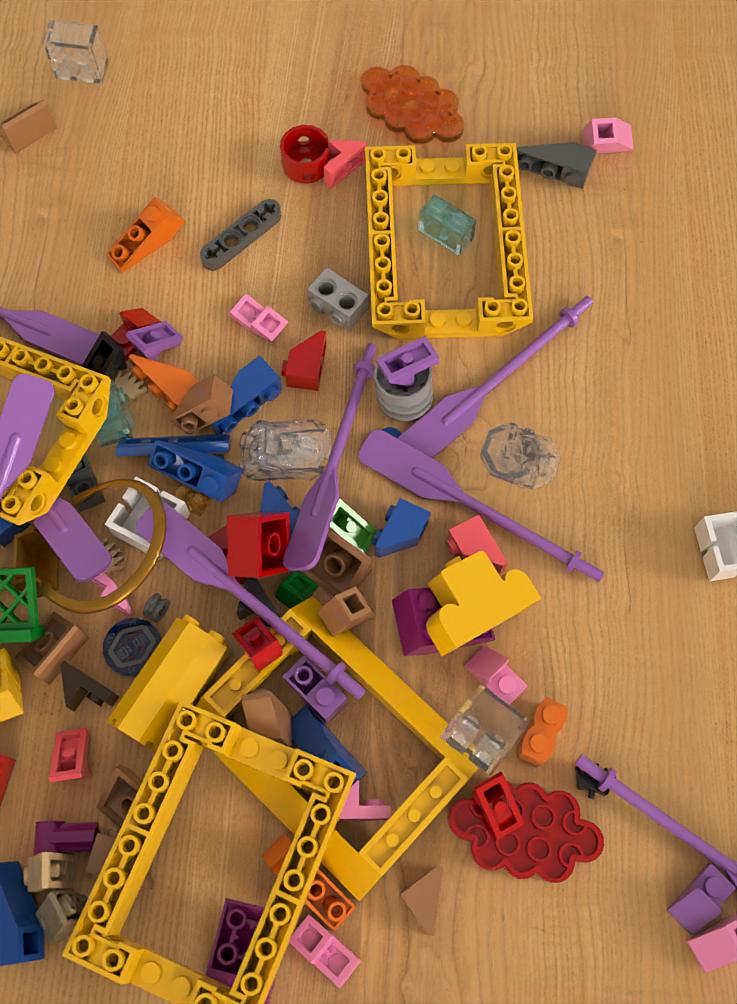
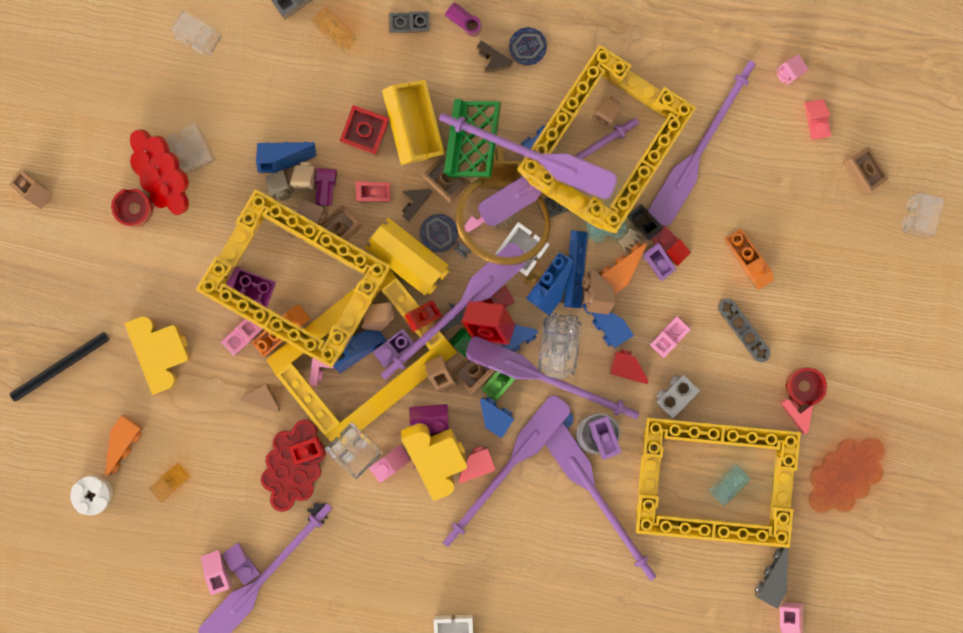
camera: 95 degrees right, 20 degrees up
(520, 456) = (532, 505): clear brick -> none
(544, 724) = (345, 483): orange brick -> none

